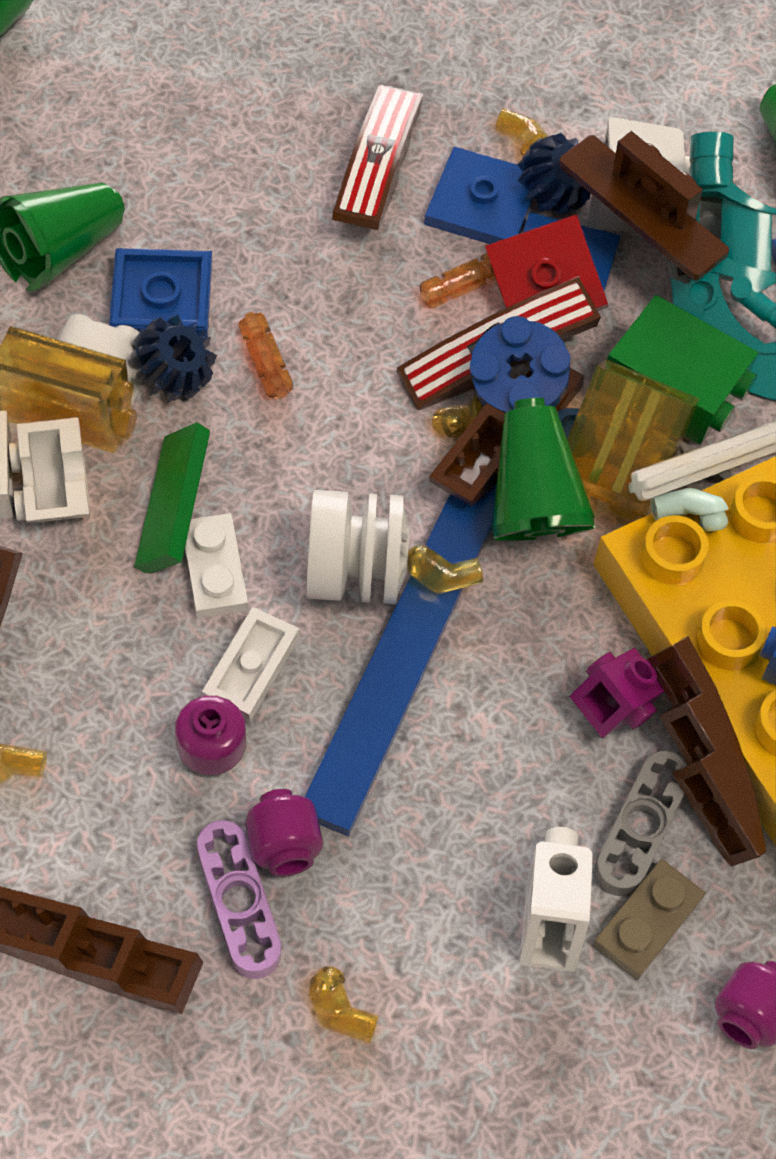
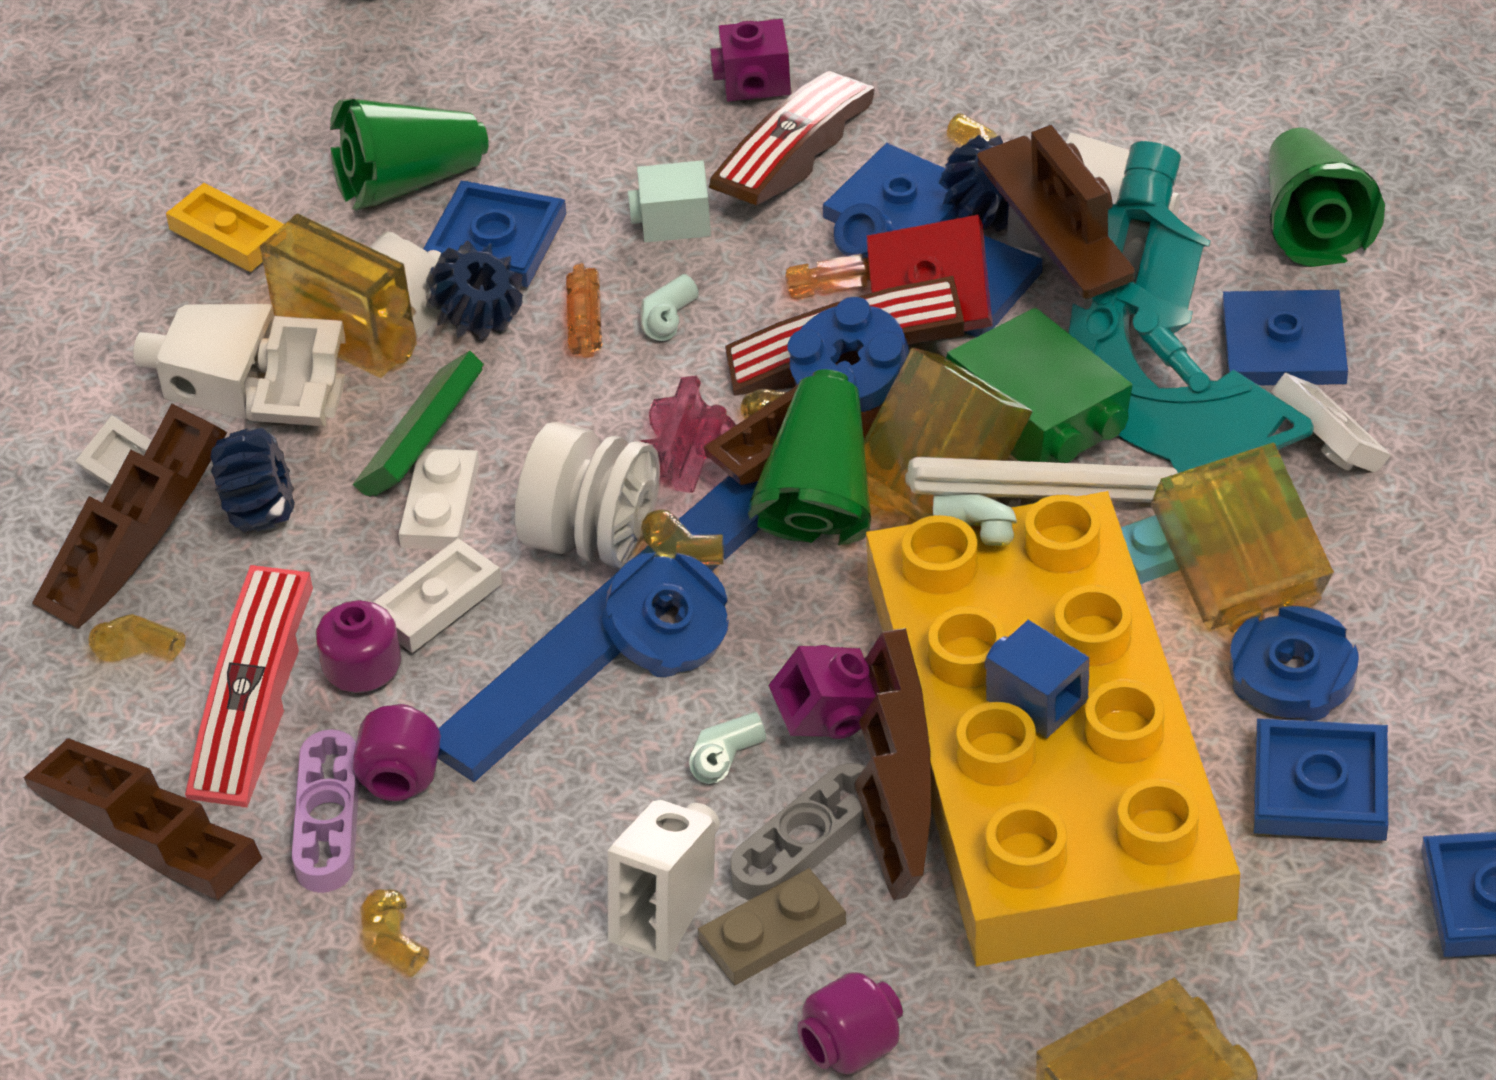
camera: 25 degrees right, 15 degrees down
(56, 590) = (252, 480): none -> dark blue gear
(129, 796) = (248, 686): none -> slope
(302, 236) = (671, 201): none -> light aqua brick
(319, 87) = (752, 60): none -> magenta brick
(328, 340) = (660, 308): none -> light aqua arm
(406, 460) = (682, 429): none -> clear pink hips
(432, 657) = (657, 644): none -> blue plate
(468, 236) = (855, 225): none -> blue tile
(539, 756) = (718, 746): none -> light aqua arm

